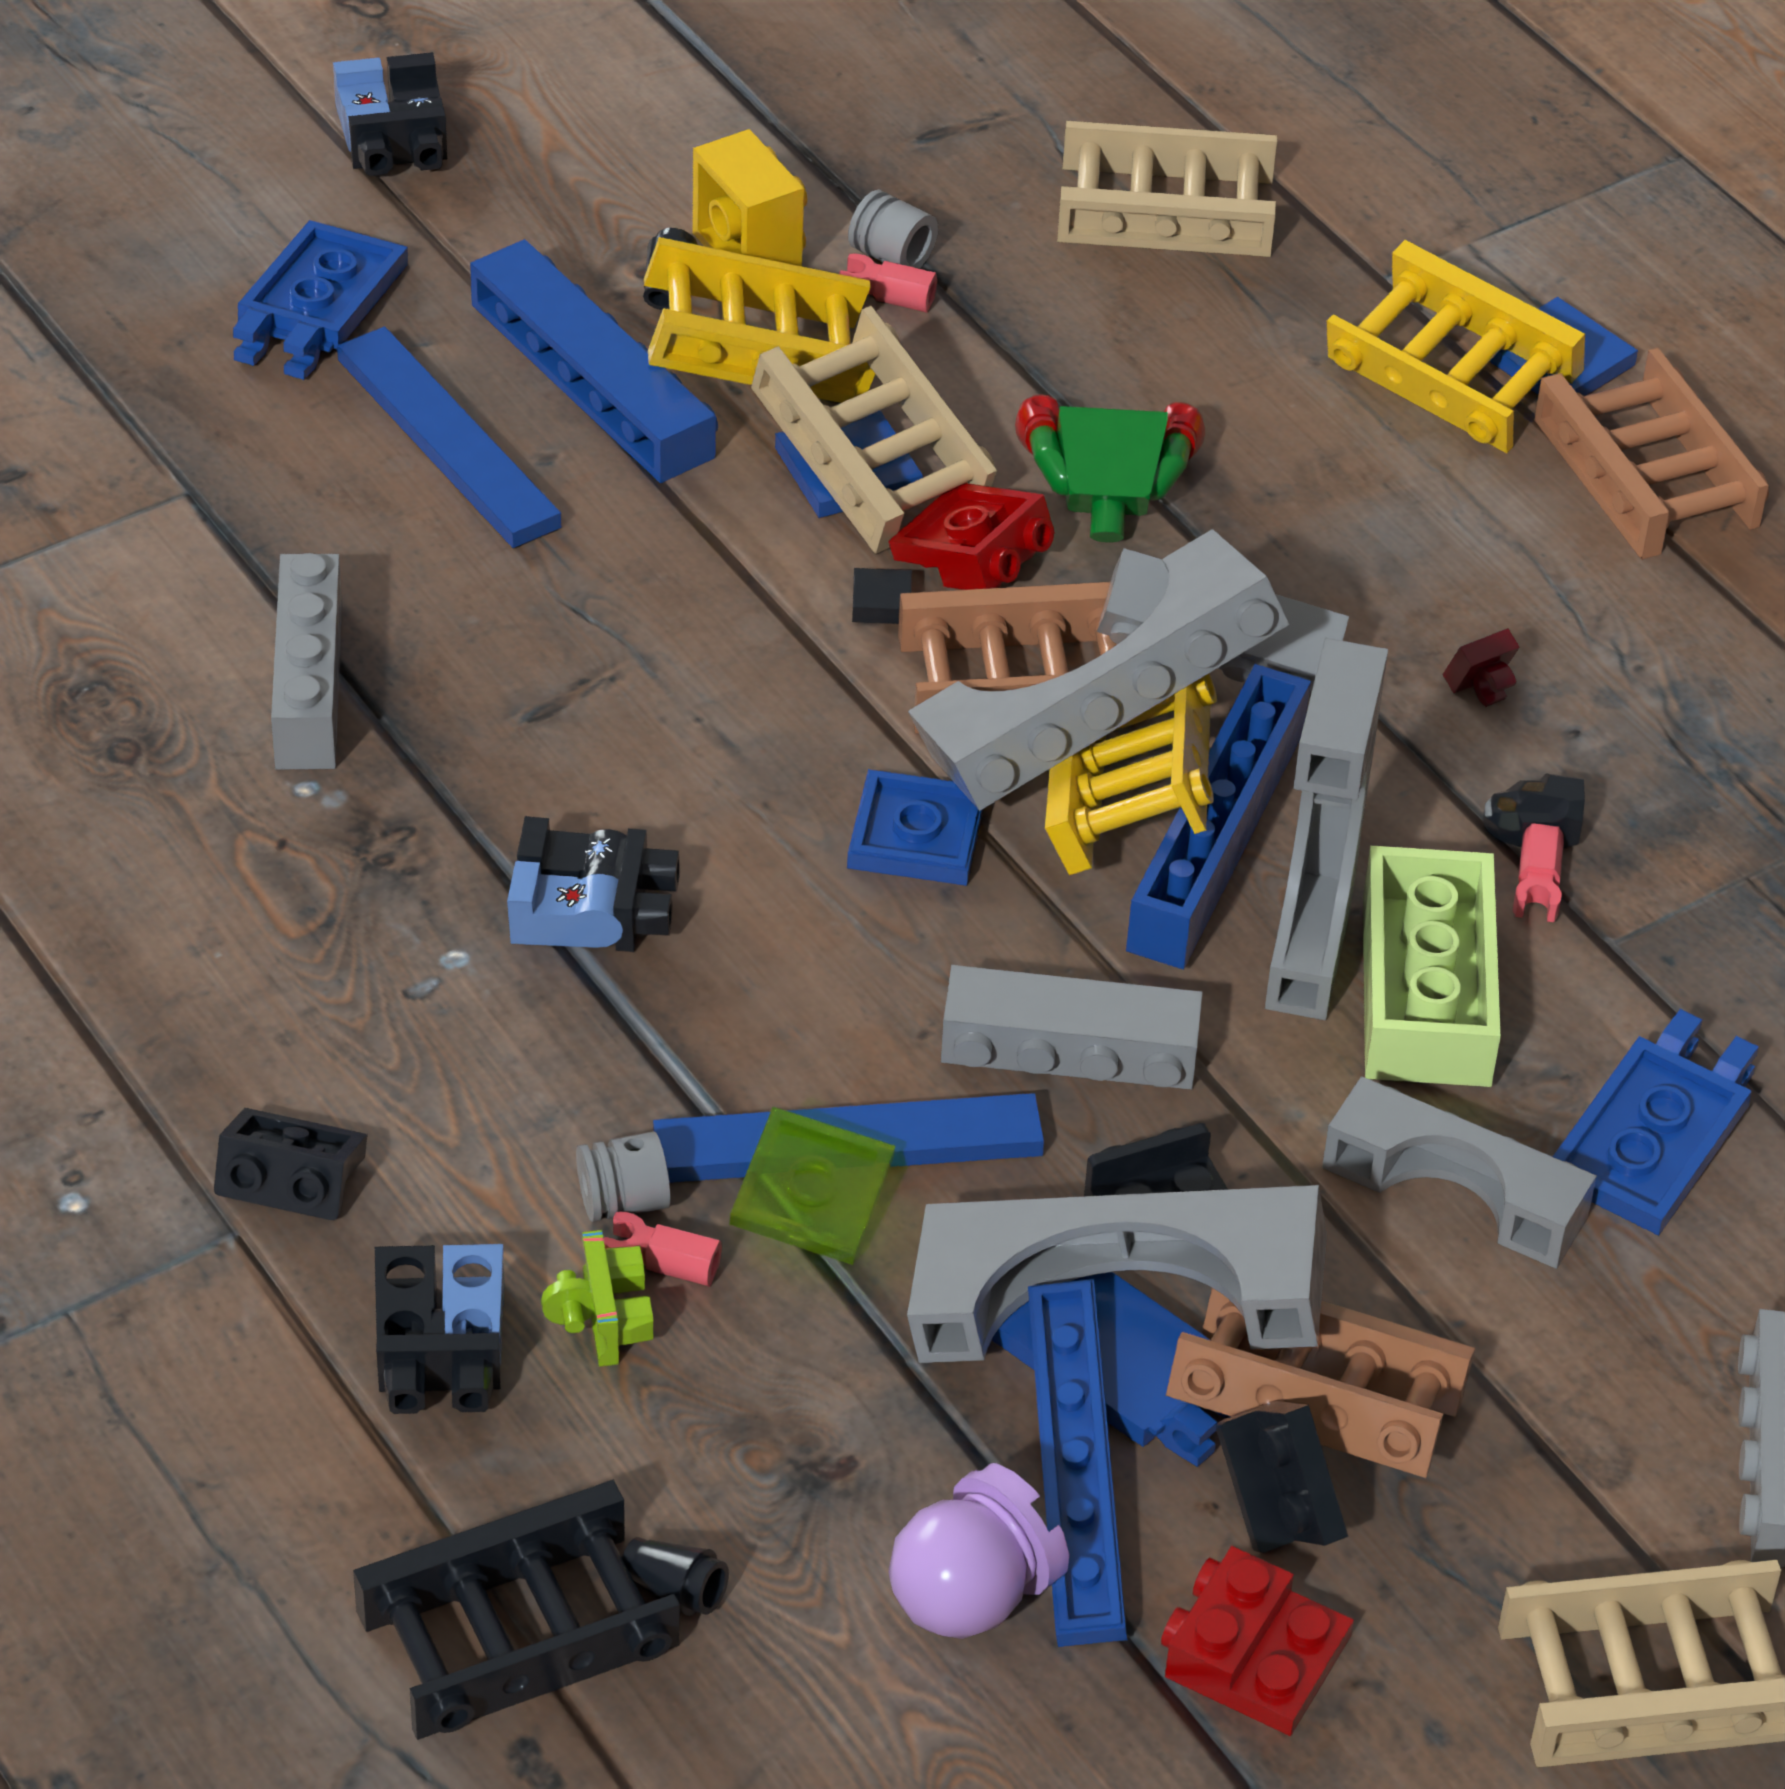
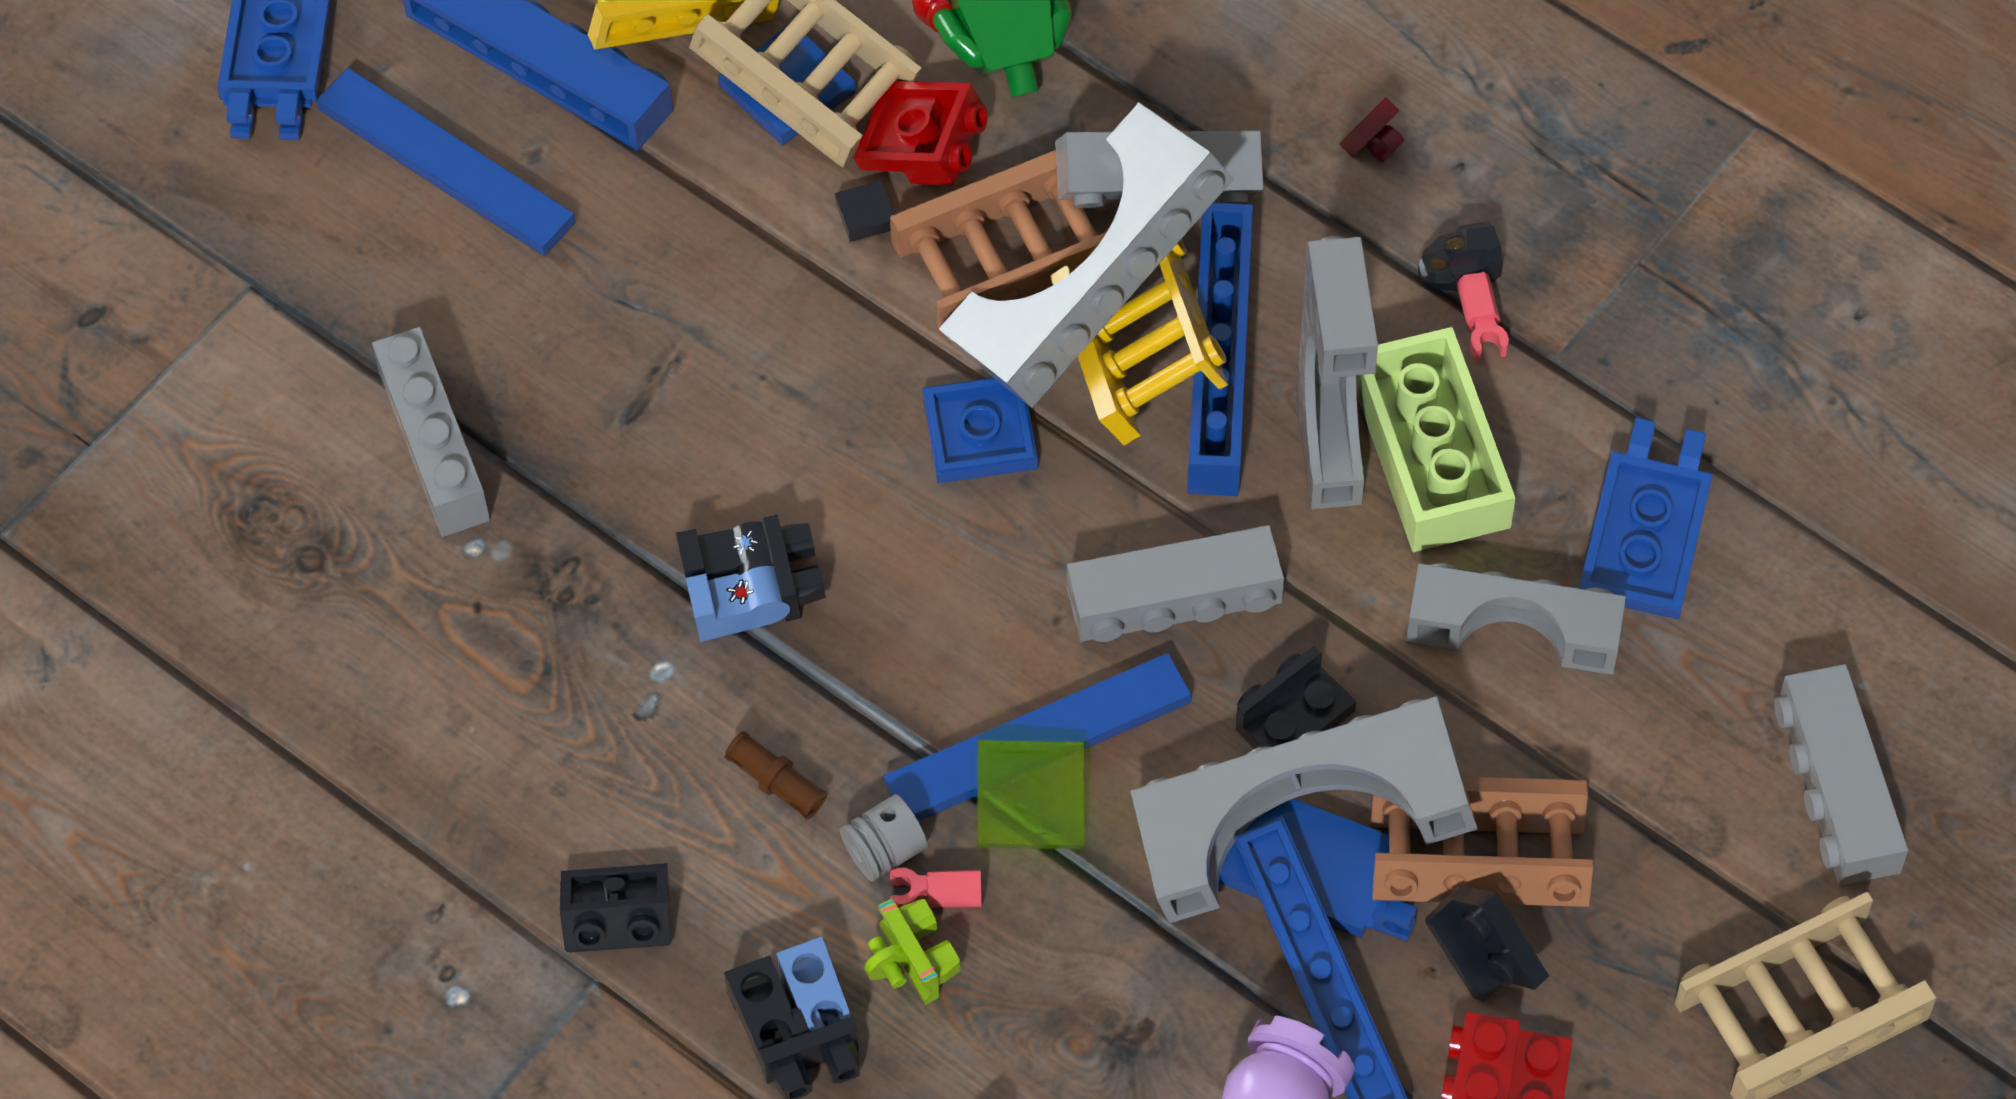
camera: 15 degrees left, 15 degrees up
(531, 1086) = (775, 775): none -> reddish brown pin

